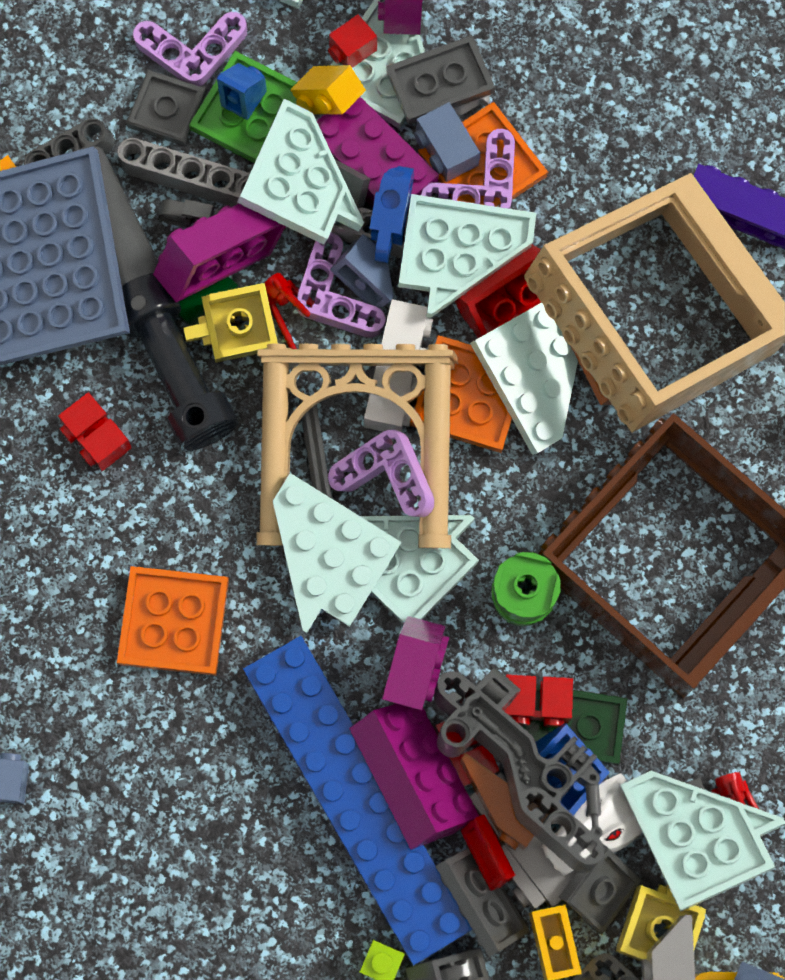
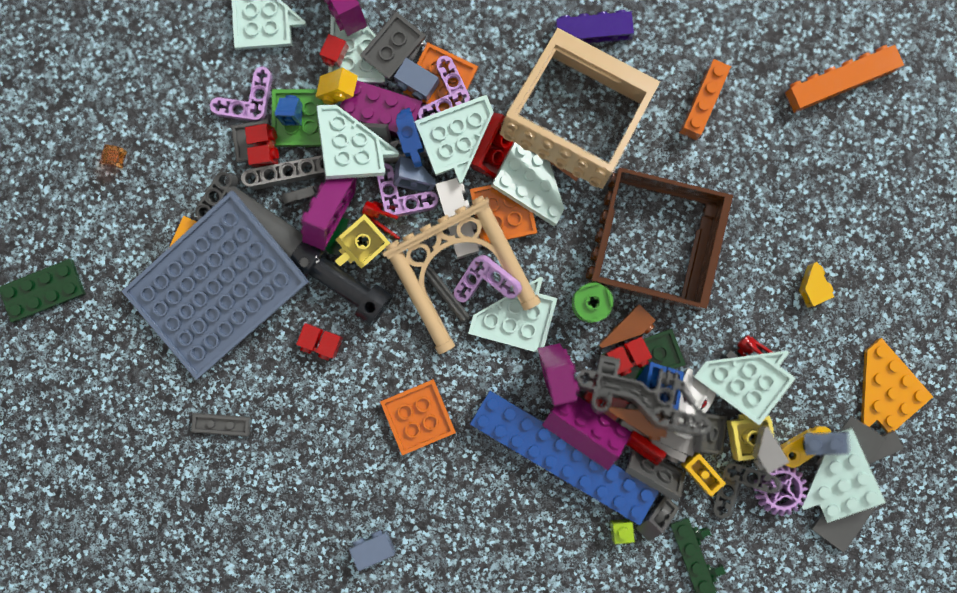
camera: 25 degrees left, 10 degrees up
(182, 111) = (263, 150): none -> red piece
(328, 552) = (479, 338): light aqua wing -> none
(573, 659) = (632, 325): none -> dark orange slope

